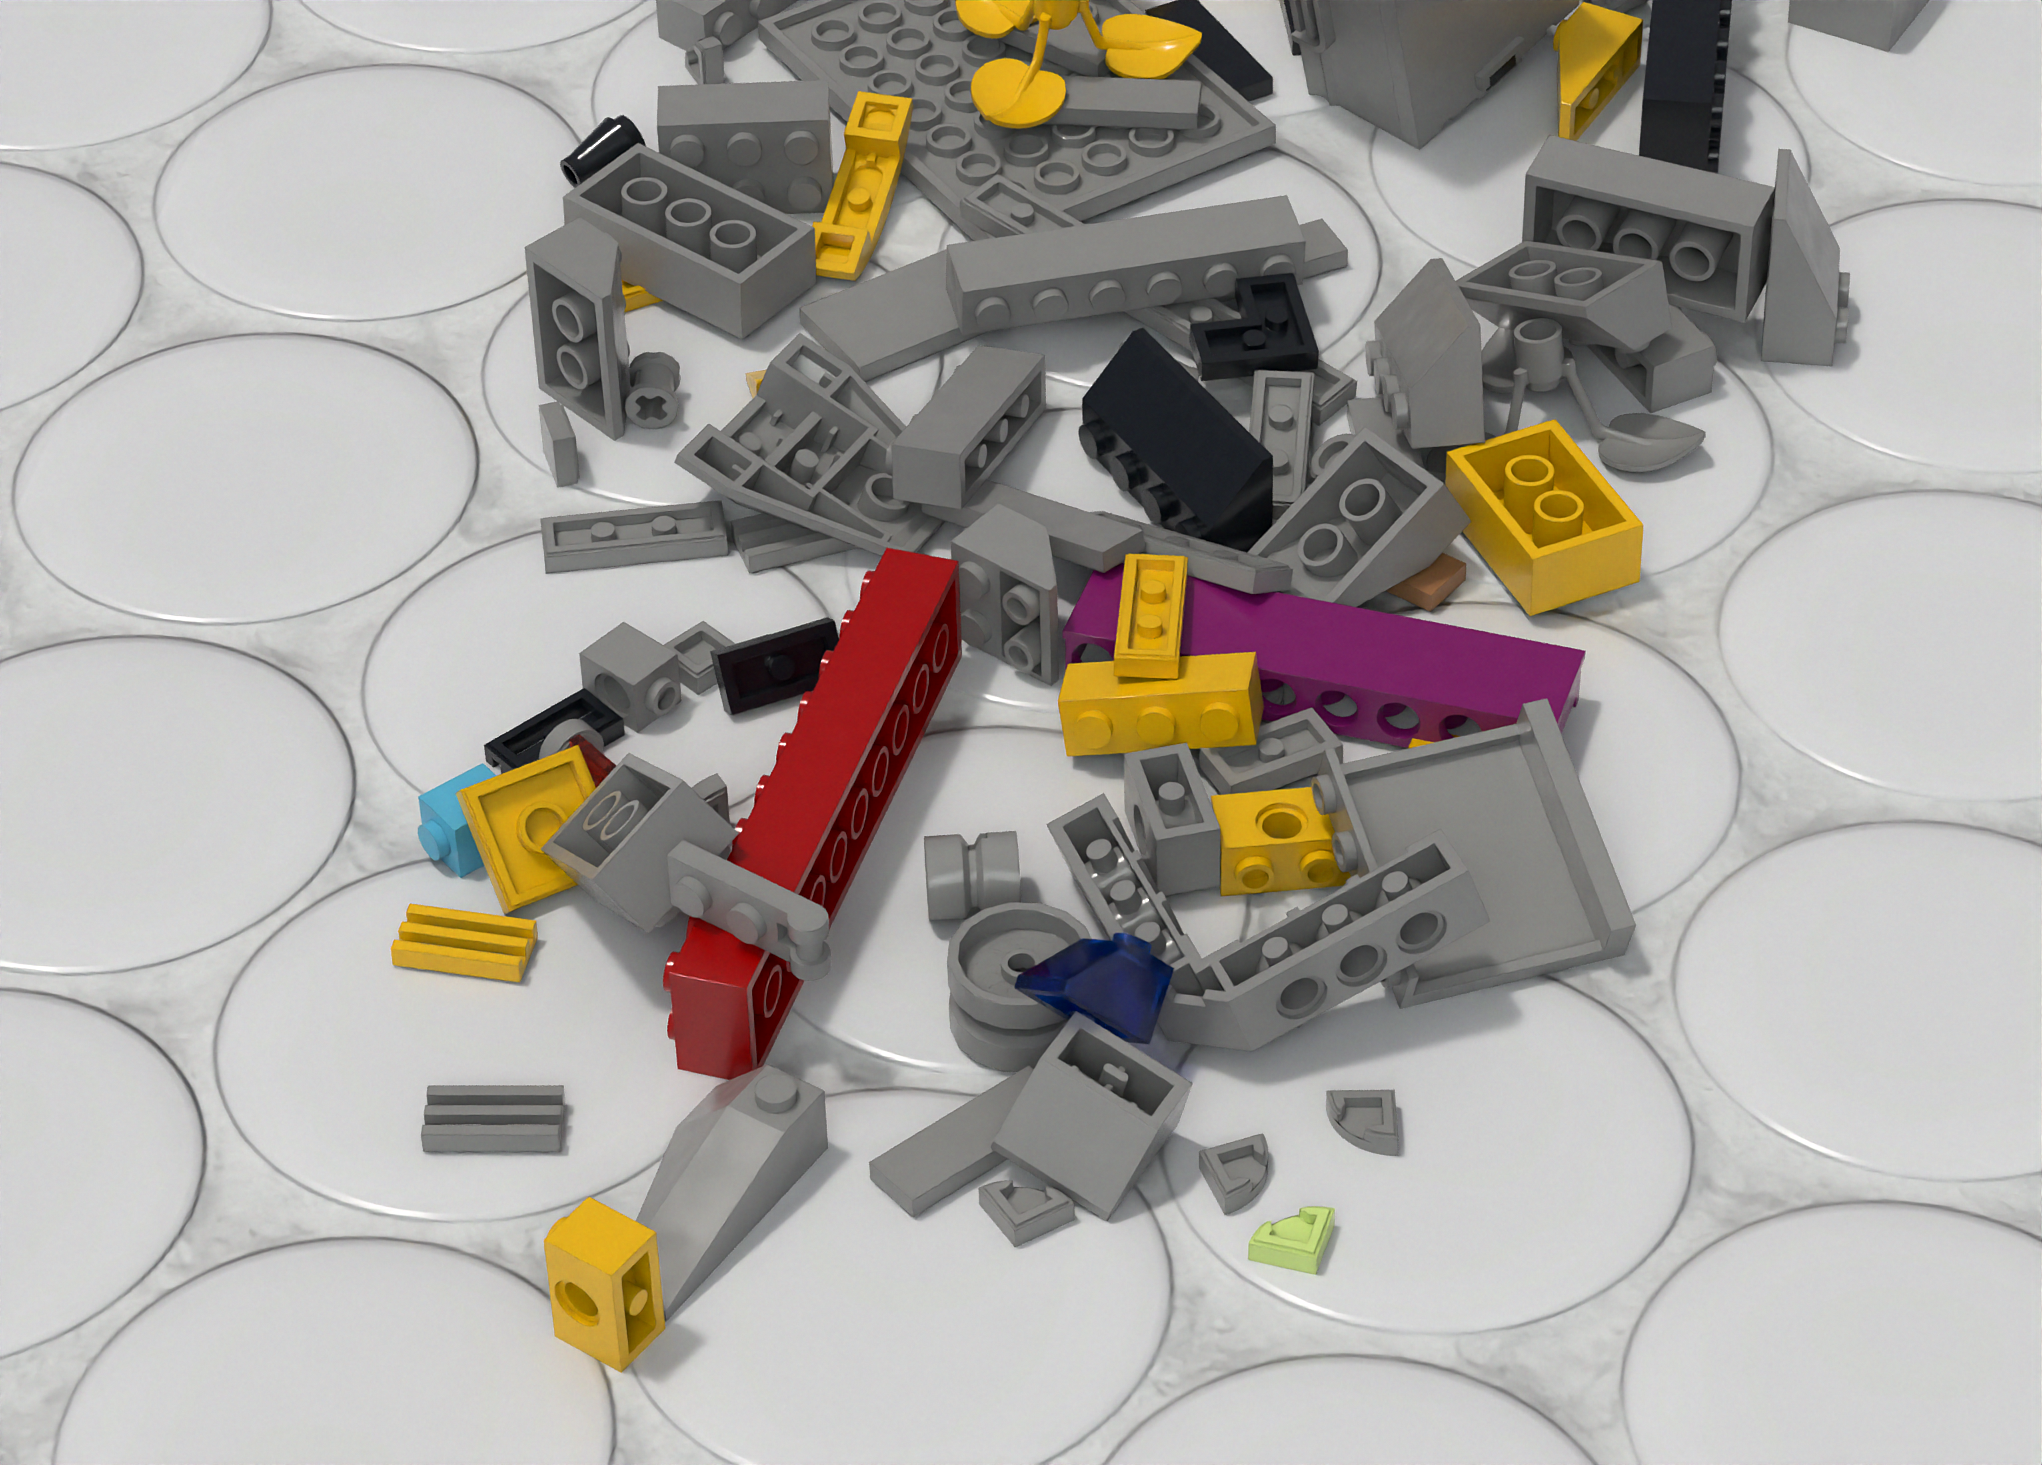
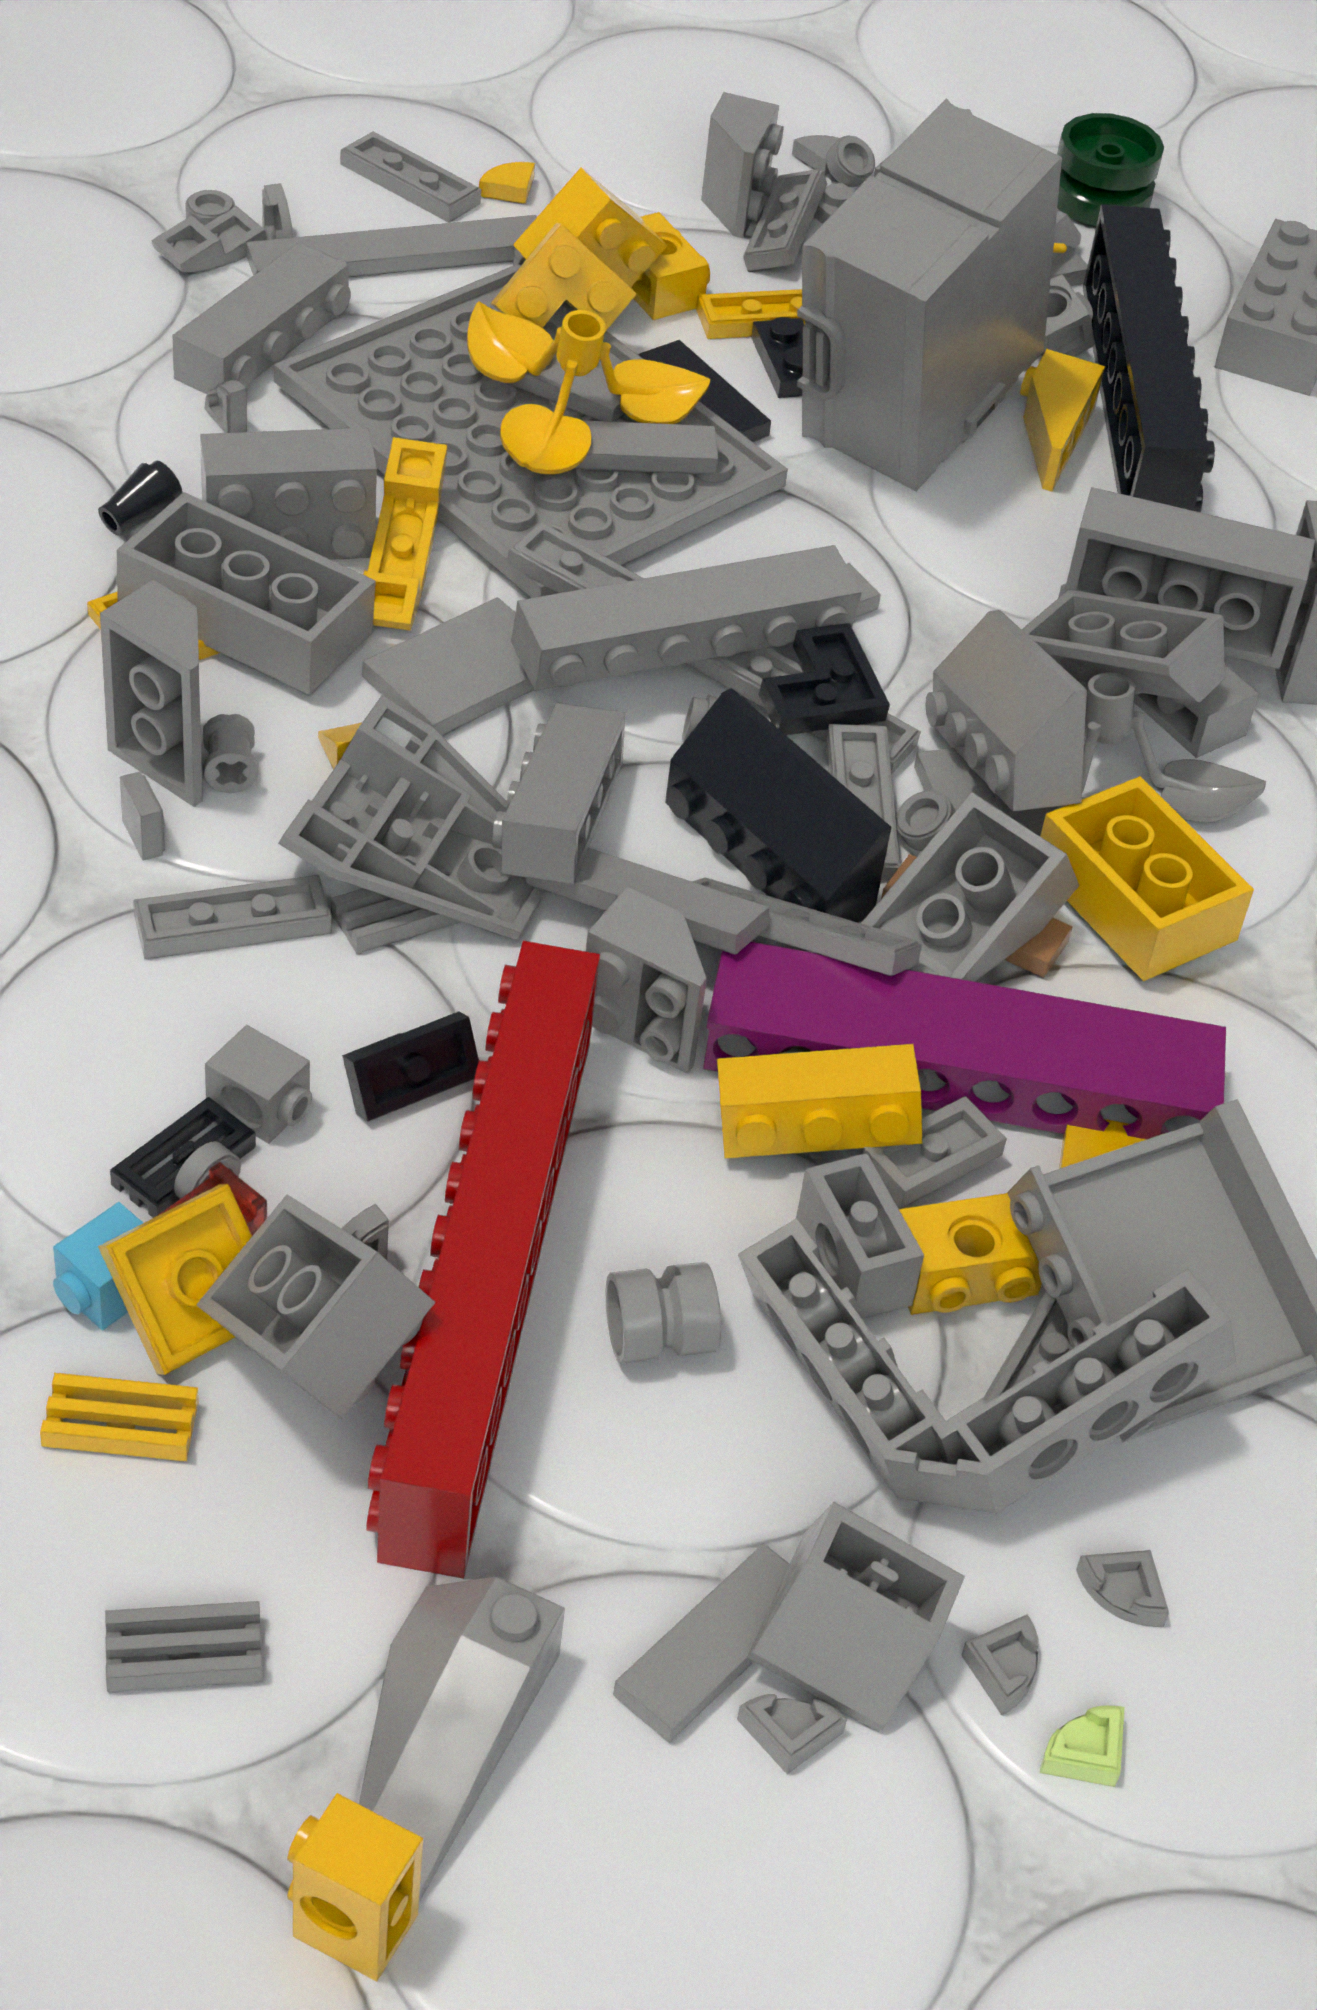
camera: 15 degrees left, 5 degrees up
(694, 655) = (324, 1044): light grey tile -> none
(750, 909) = (467, 1401): light grey plate -> none
(983, 963) = (745, 1451): light grey wheel -> none
(1106, 982) = (853, 1461): clear blue slope -> none
(1151, 616) = (798, 1007): yellow tile -> none

